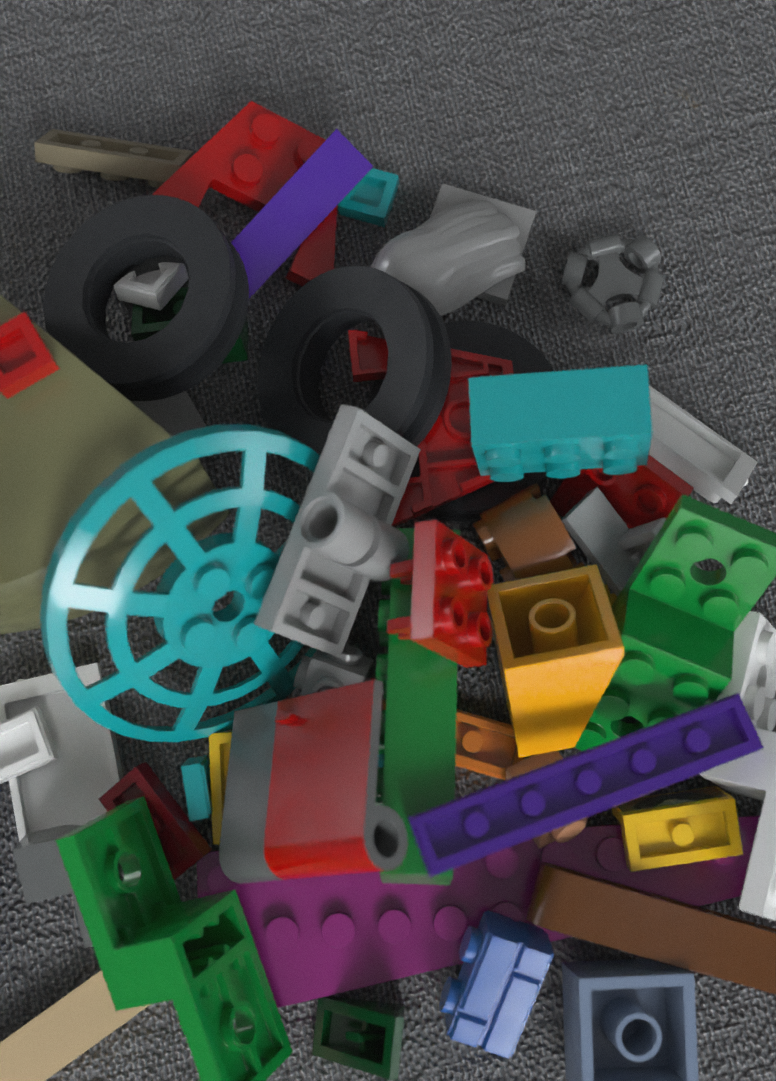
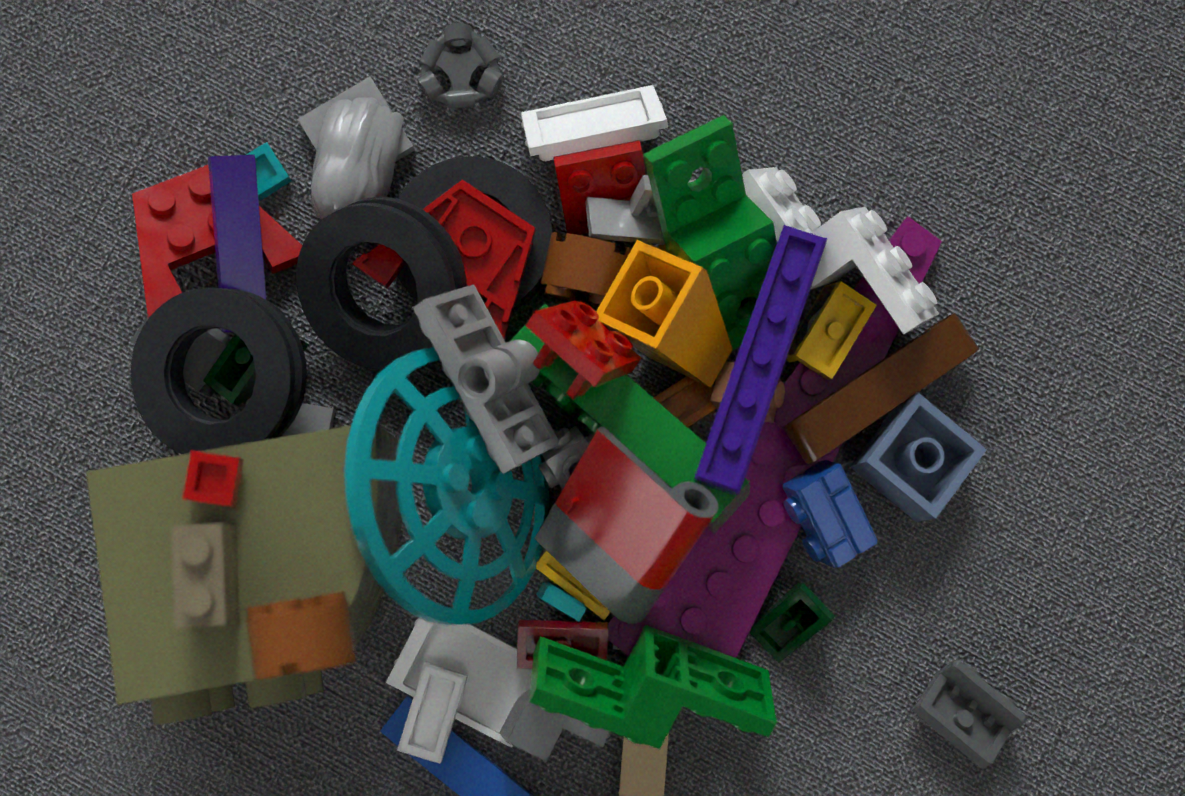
camera: 50 degrees left, 5 degrees up
(111, 157) = (86, 316): dark tan plate -> none
(152, 288) = (211, 364): white tile -> none
(561, 422) = (535, 185): teal brick -> none

